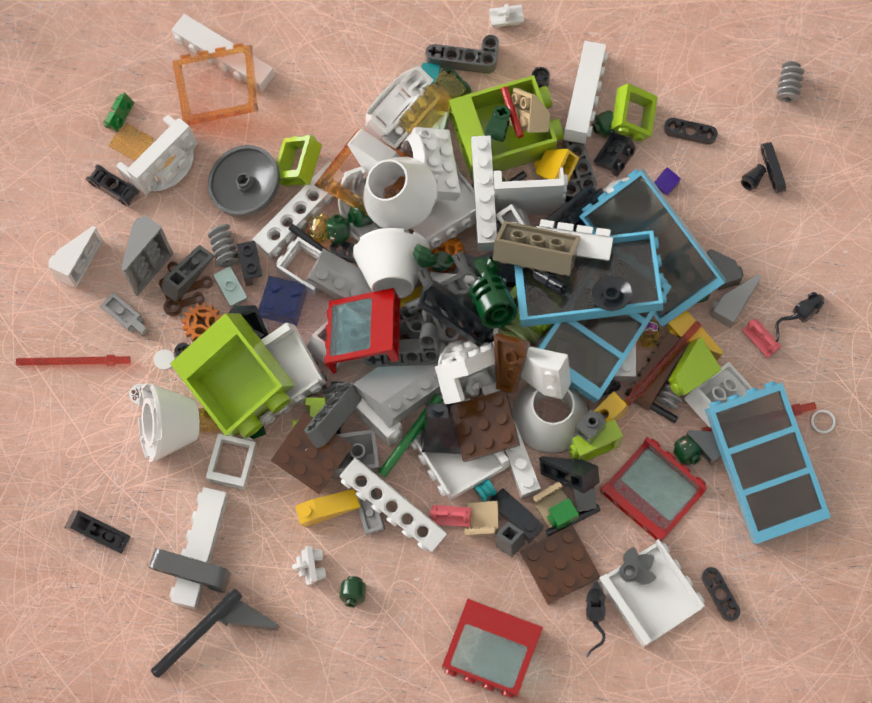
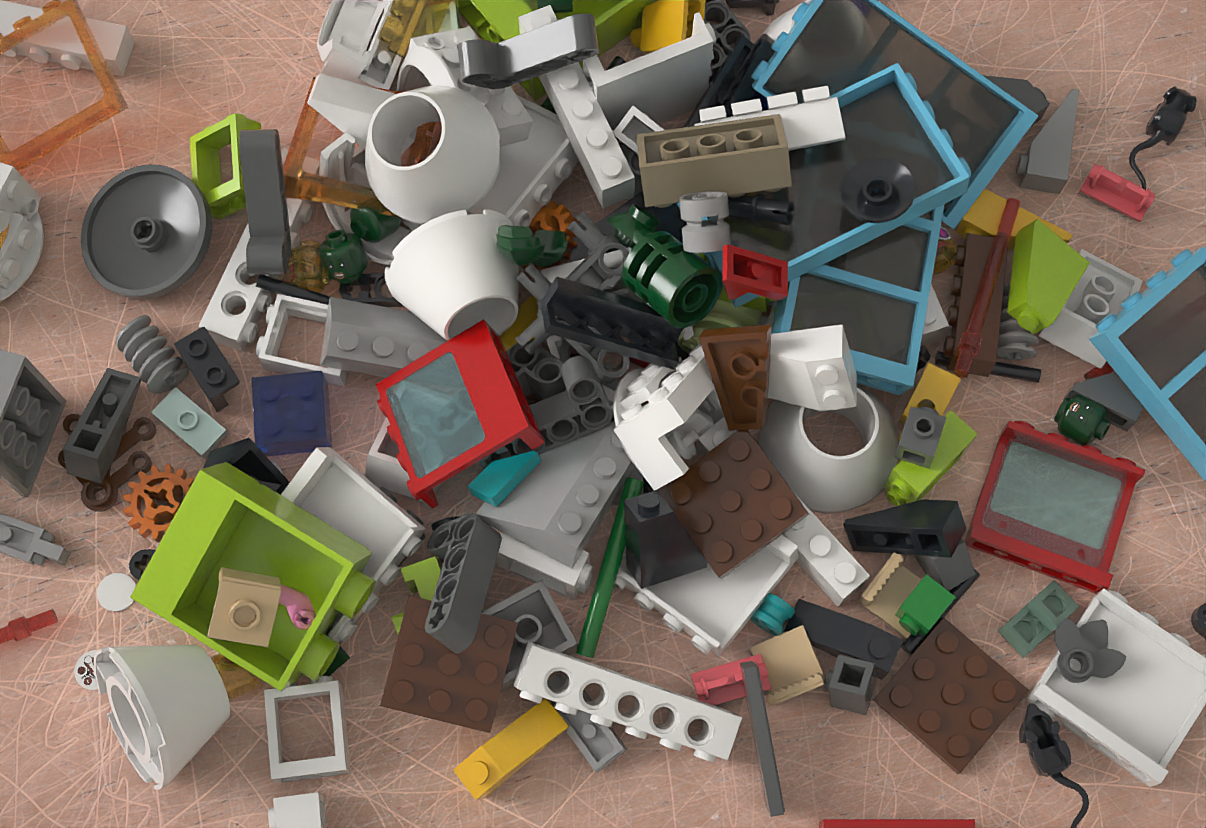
camera: 25 degrees left, 0 degrees up
(222, 388) = (245, 607): none -> tan piece
(249, 396) = (298, 607): none -> bright pink arm
(307, 190) = (266, 202): none -> dark grey beam
(373, 370) = (502, 477): none -> teal tile
(453, 547) = (762, 738): none -> dark grey tile
(466, 158) = (528, 54): none -> dark grey beam
(517, 285) = (700, 234): none -> light grey wheel
(531, 312) = (753, 273): none -> red slope
(620, 543) = (1038, 618): none -> sand green slope

